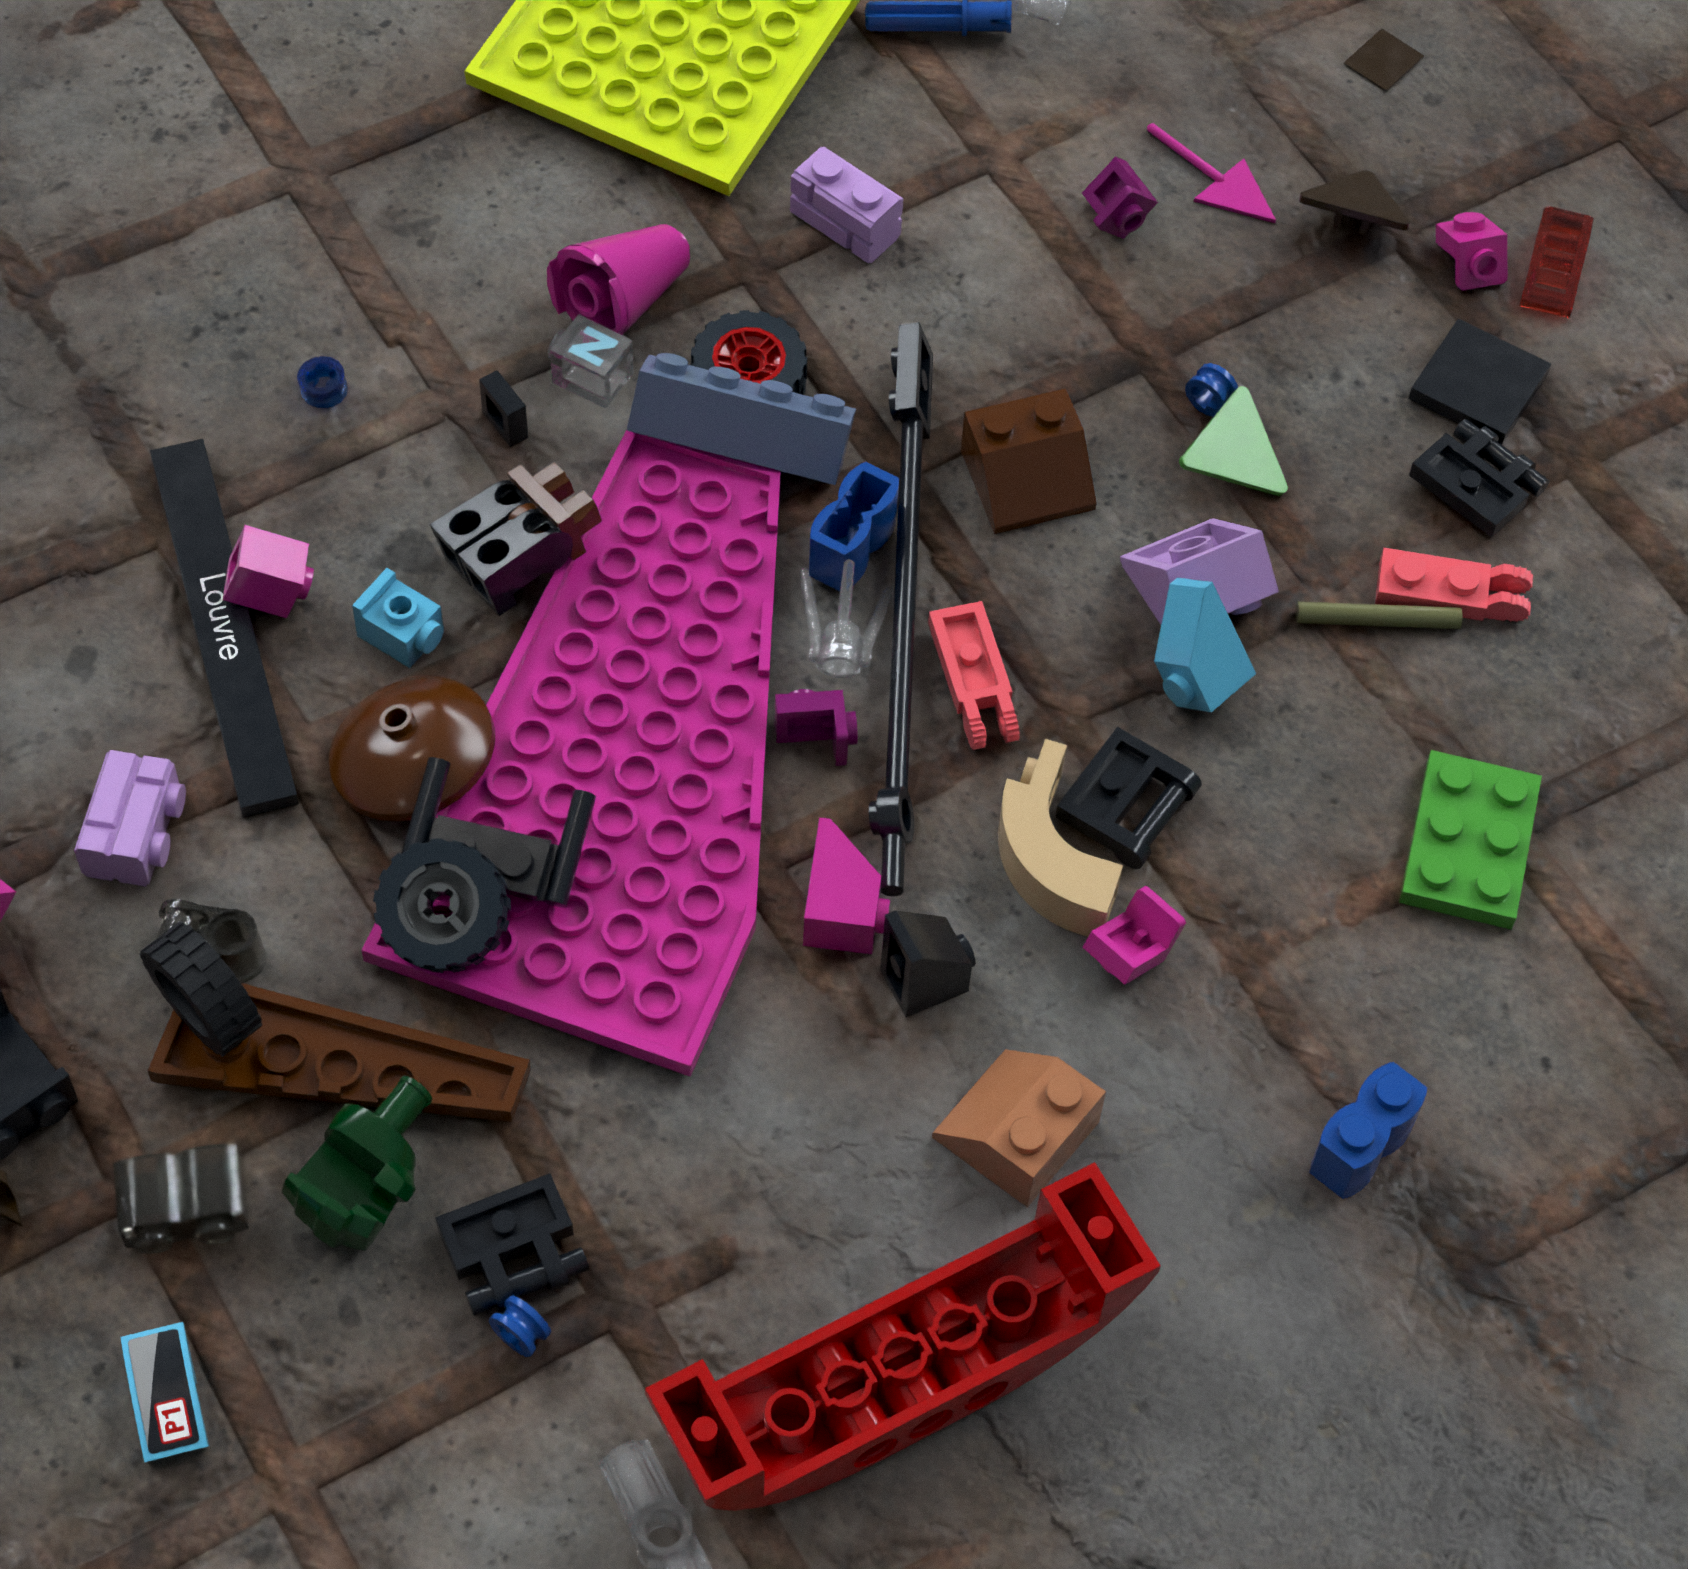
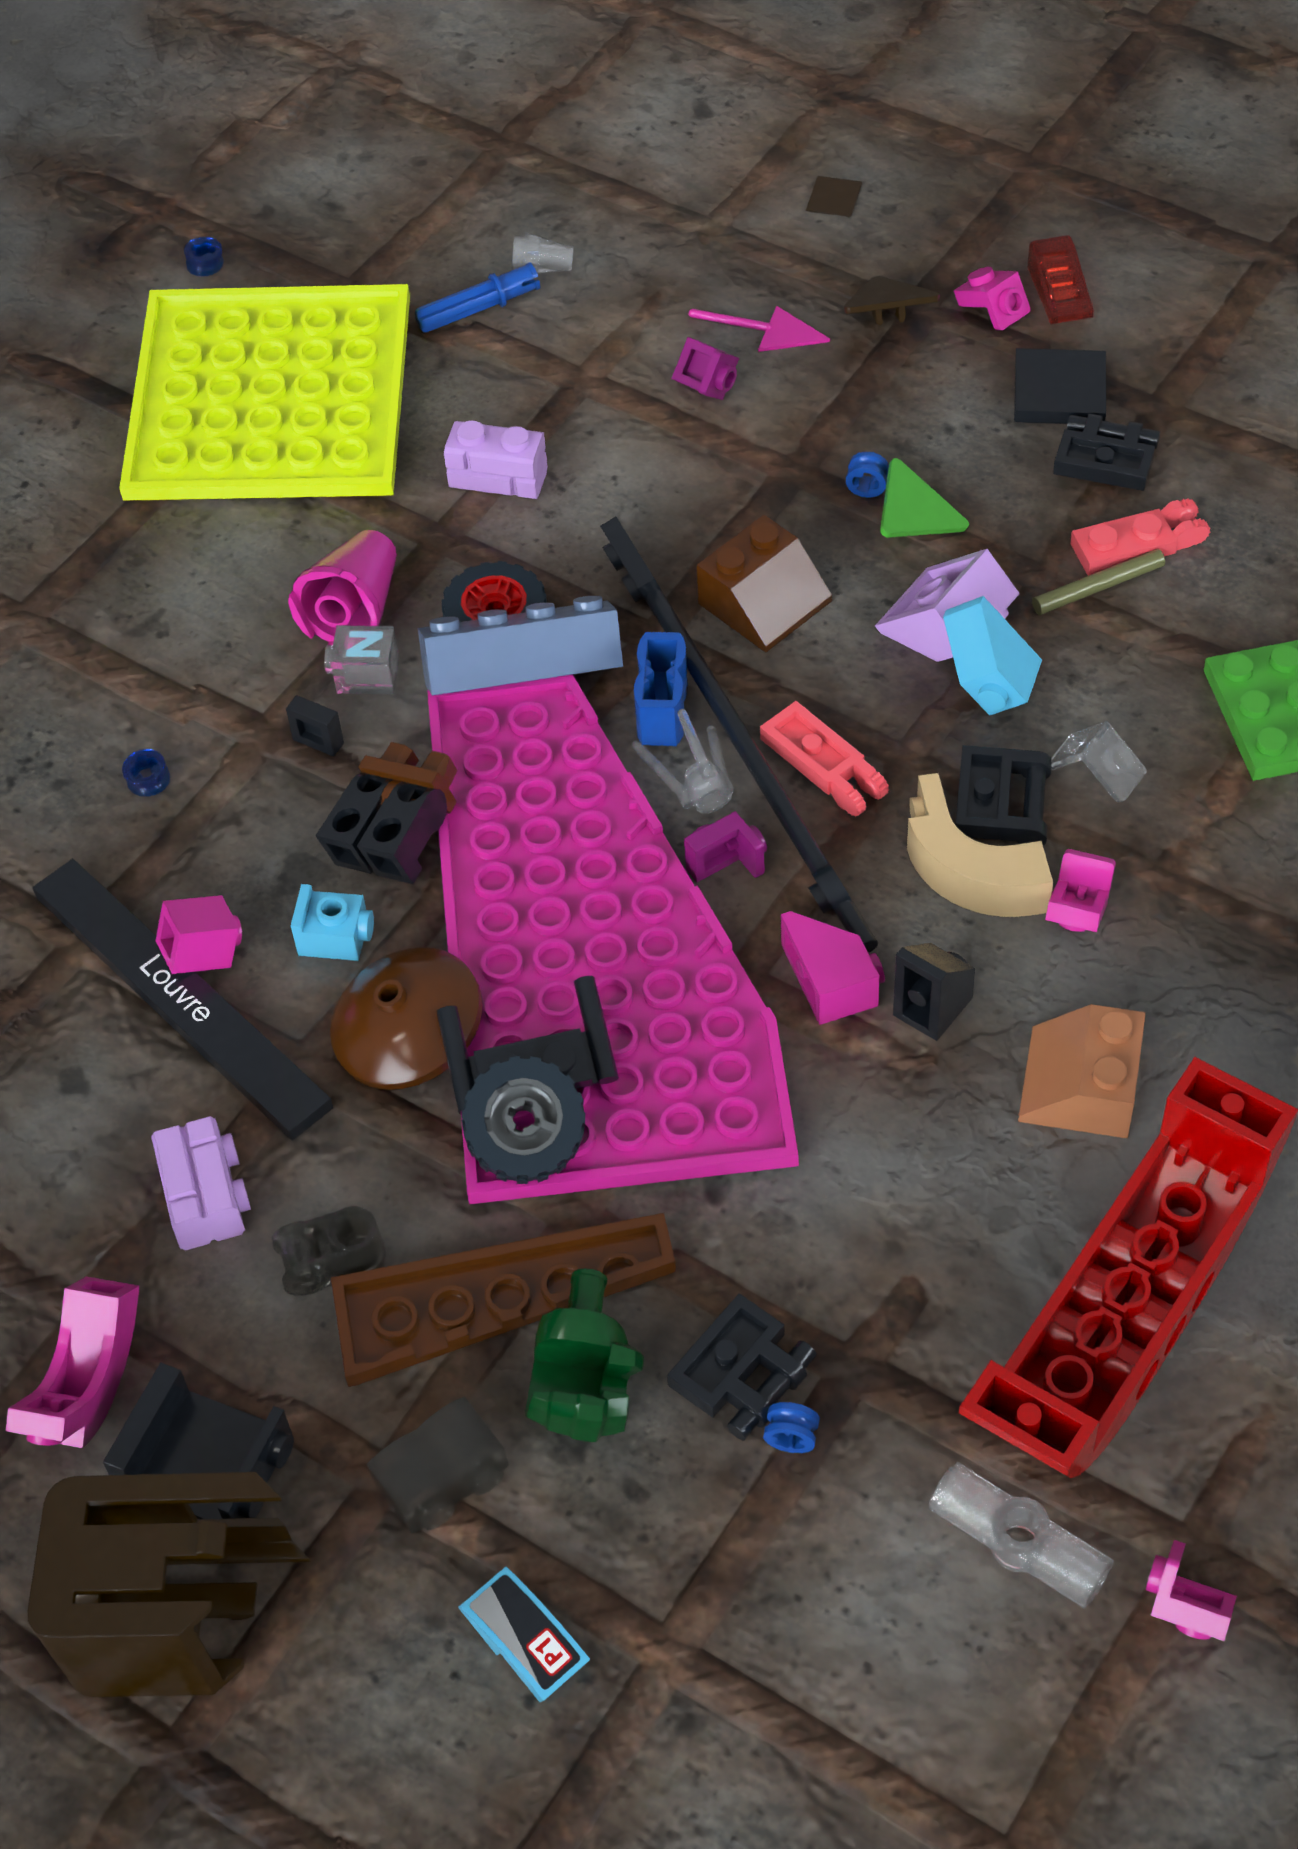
camera: 20 degrees left, 5 degrees down
(201, 988) = (364, 1279): black tyre -> none
(1254, 809) = (1105, 757): none -> clear bracket

